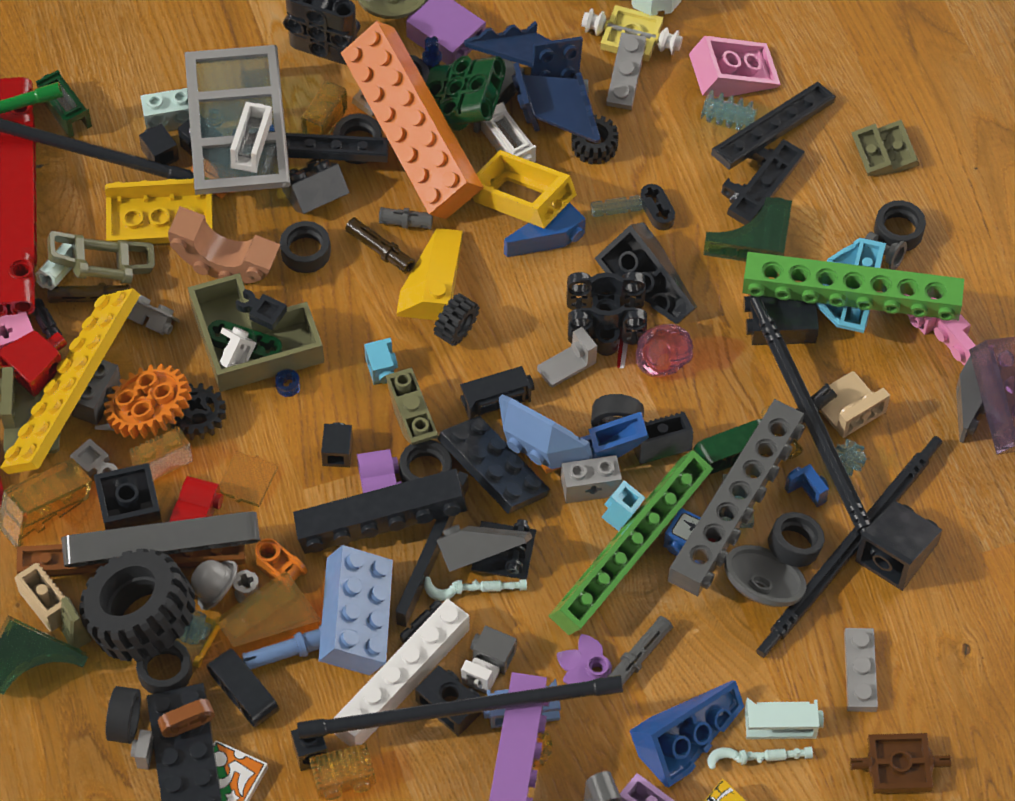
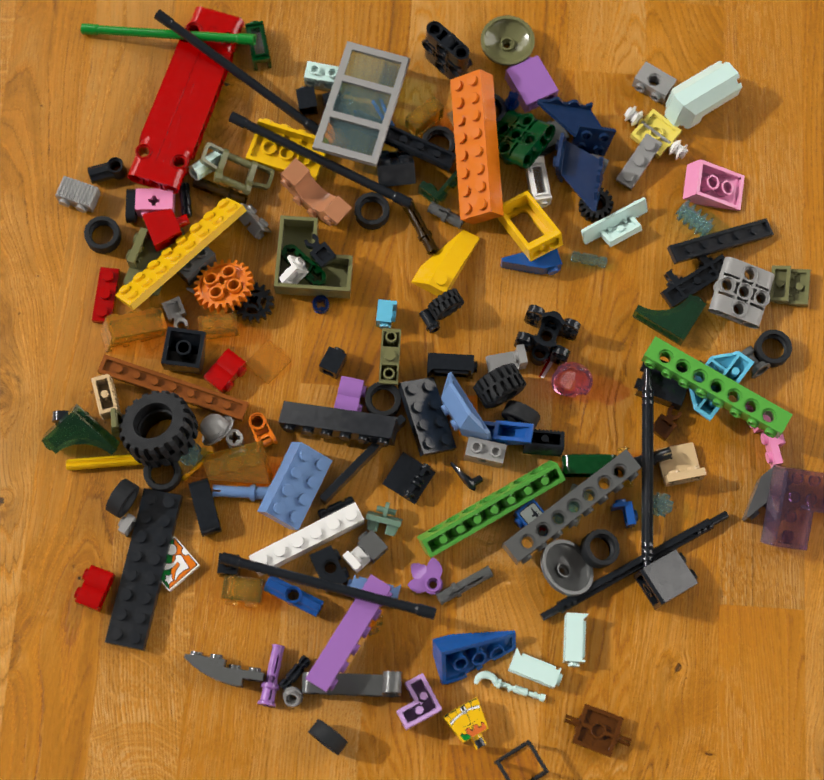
camera: 20 degrees right, 15 degrees up
(73, 685) = (101, 462): none -> yellow axle
(89, 198) = (245, 123): none -> black piece
(166, 537) = (192, 388): dark grey beam -> none
(186, 718) = (158, 517): dark orange beam -> none
(250, 136) = (362, 123): white window -> none
(372, 198) = (430, 192): none -> clear green bracket
(434, 752) = (282, 590): none -> blue piece
(447, 353) = (430, 322): none -> black pin
(458, 587) = (386, 498): light aqua piece -> none
(476, 543) = (388, 470): dark grey slope -> none
(508, 611) = (374, 519): none -> sand green hips
(573, 388) = (499, 385): none -> black tyre
(581, 523) = (470, 483): none -> black bar
(622, 505) = (496, 480): medium azure brick -> none
(634, 153) = (617, 225): none -> light aqua bracket
(641, 252) = (587, 306): black wedge -> none
(662, 204) = (620, 270): black beam -> none
(809, 361) = (664, 424): none -> reddish brown plate
(816, 661) = (574, 639): none -> light aqua window
(835, 155) = (734, 277): none -> light grey connector
(860, 670) = (602, 654): light grey plate -> none

